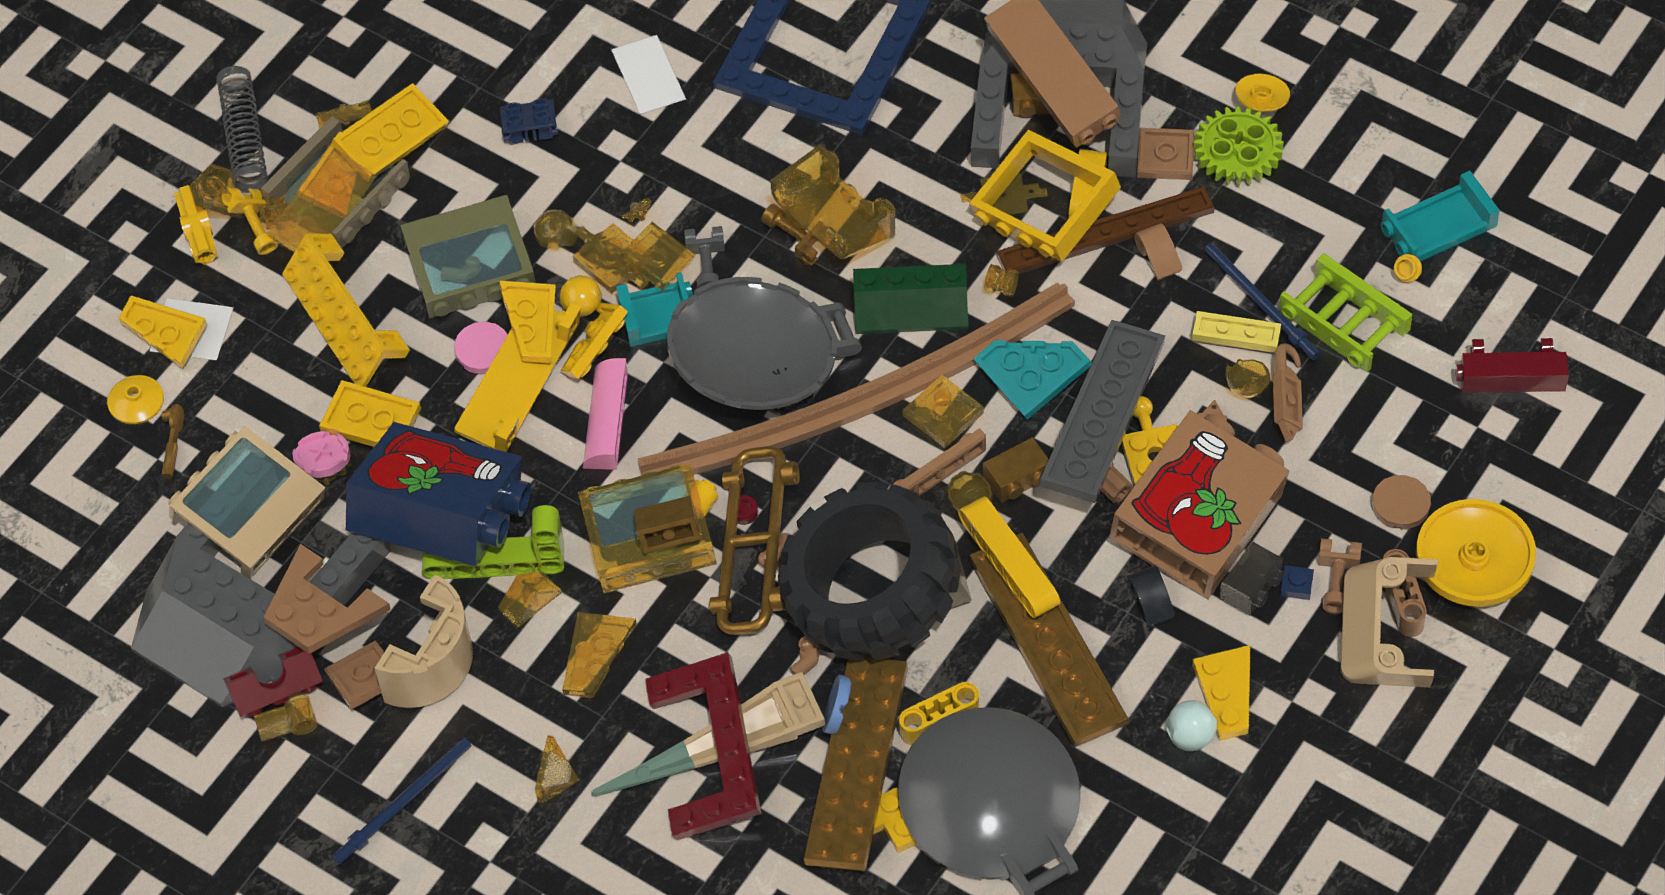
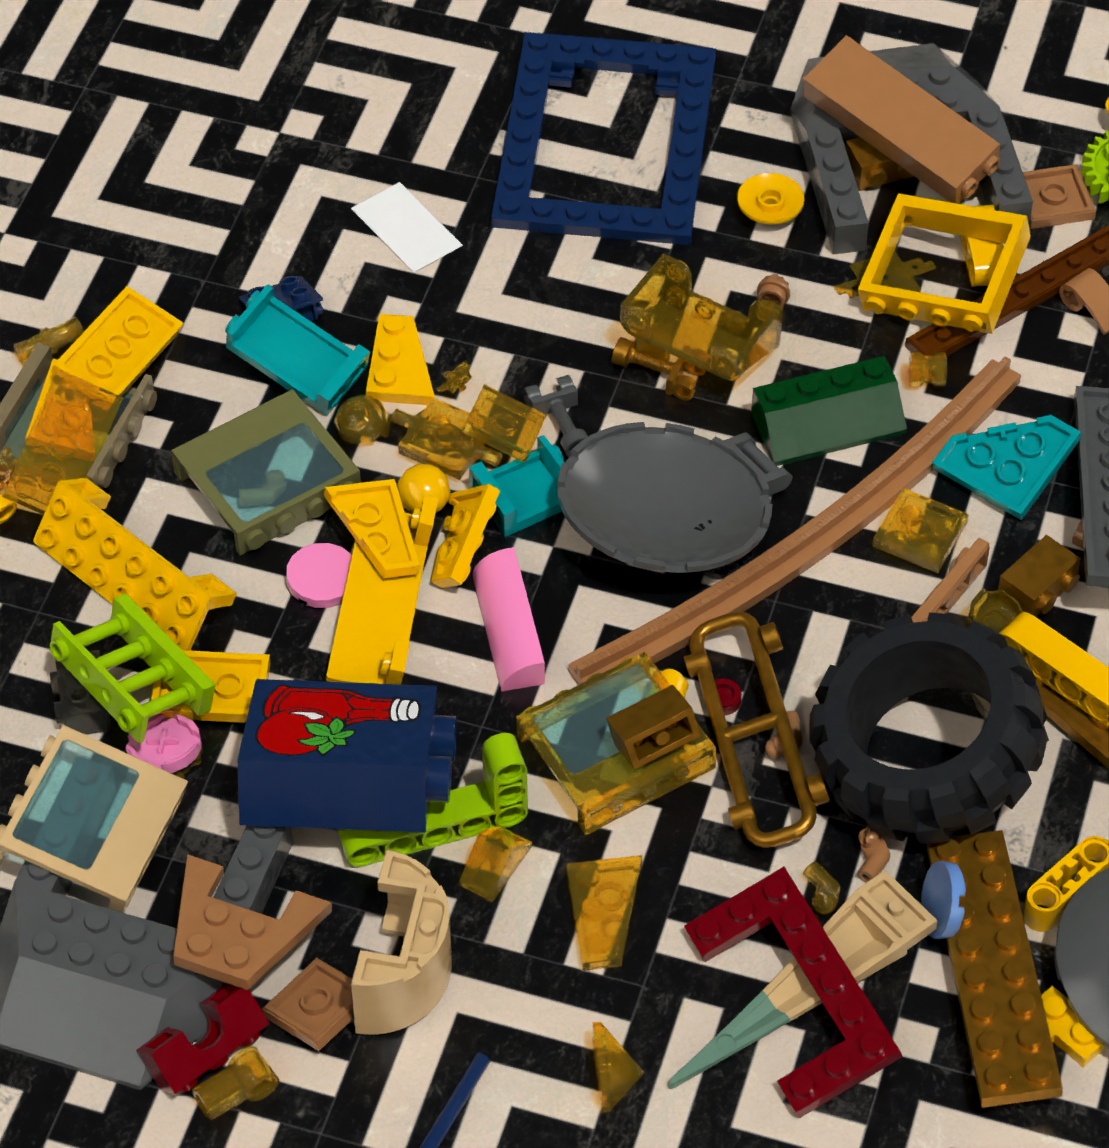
camera: 20 degrees left, 5 degrees down
(275, 402) = (77, 705): none -> clear smoke brick
(330, 374) = (144, 641): none -> lime fence
(520, 163) = (295, 351): none -> teal panel
(599, 188) = (398, 363): none -> yellow wing
(762, 674) = (827, 888): none -> clear yellow arm
(908, 189) = (774, 289): none -> medium nougat plate
(936, 102) = (770, 198): none -> yellow dish

